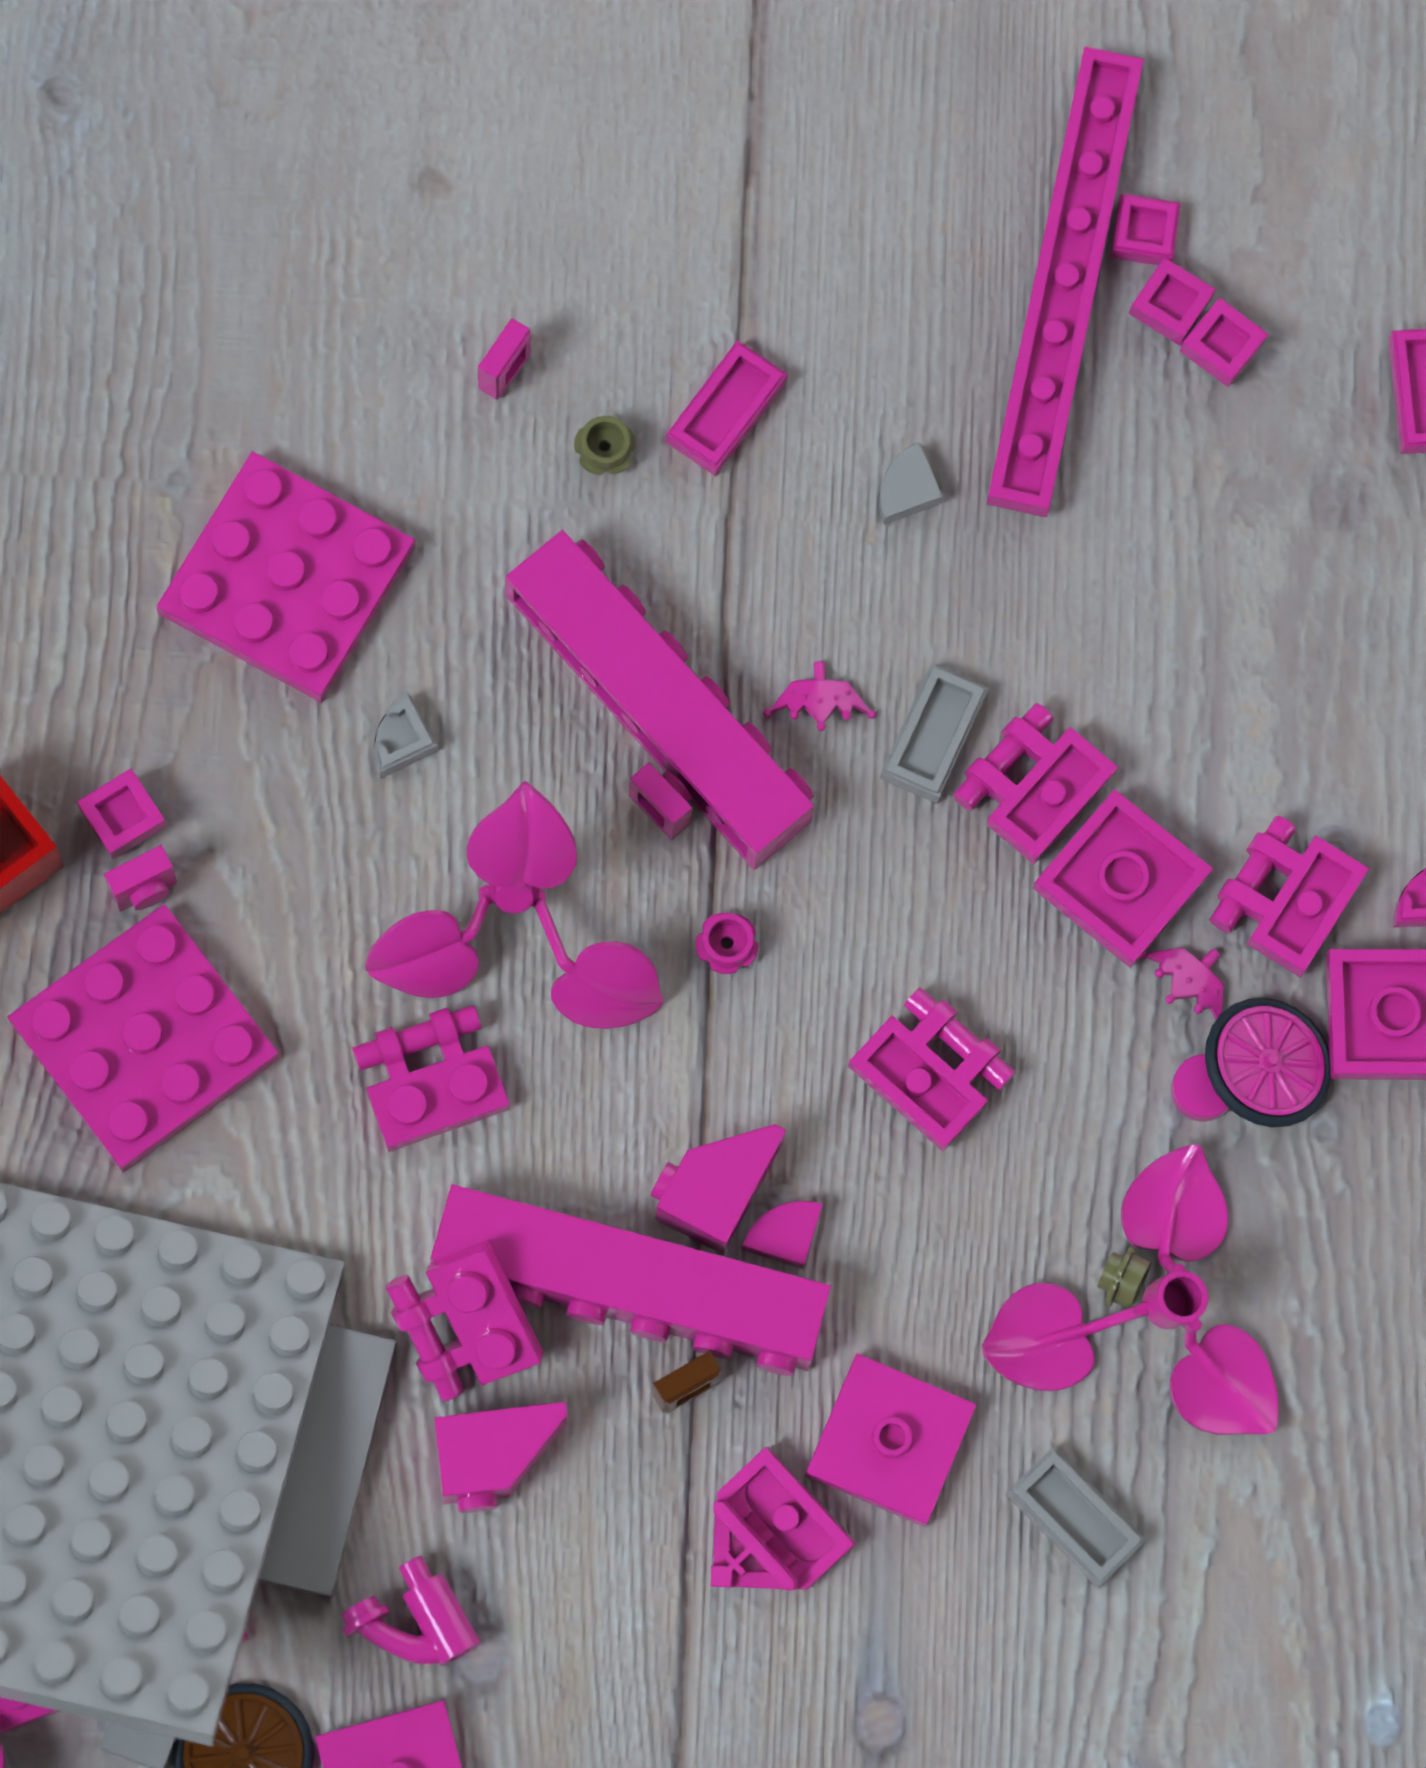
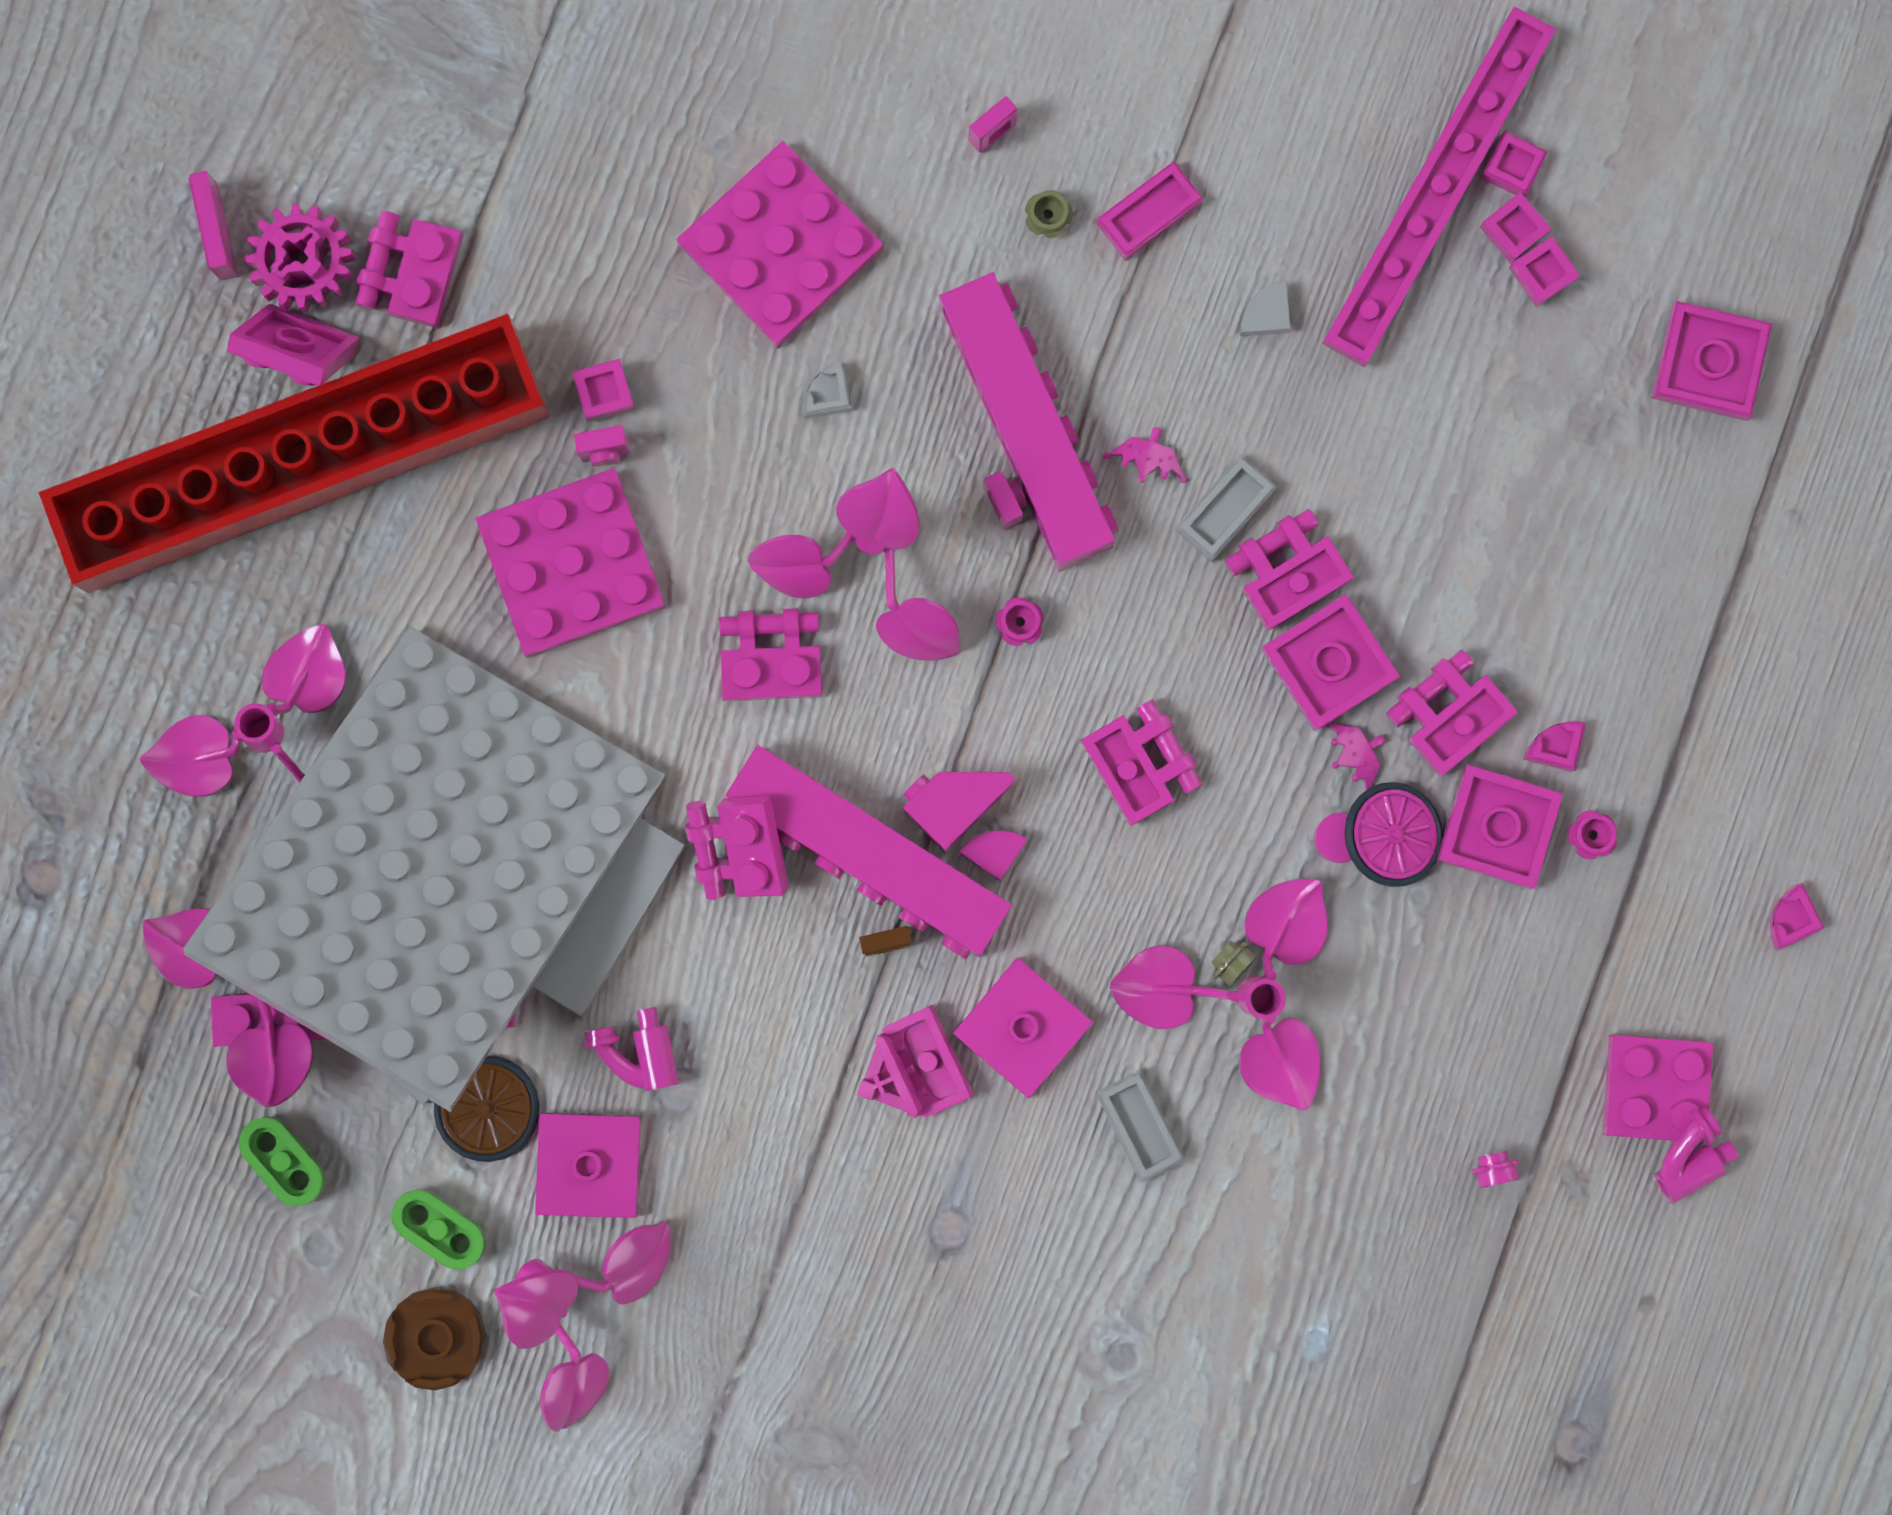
camera: 25 degrees right, 10 degrees up
(493, 1451) = (728, 949): dark pink slope -> none

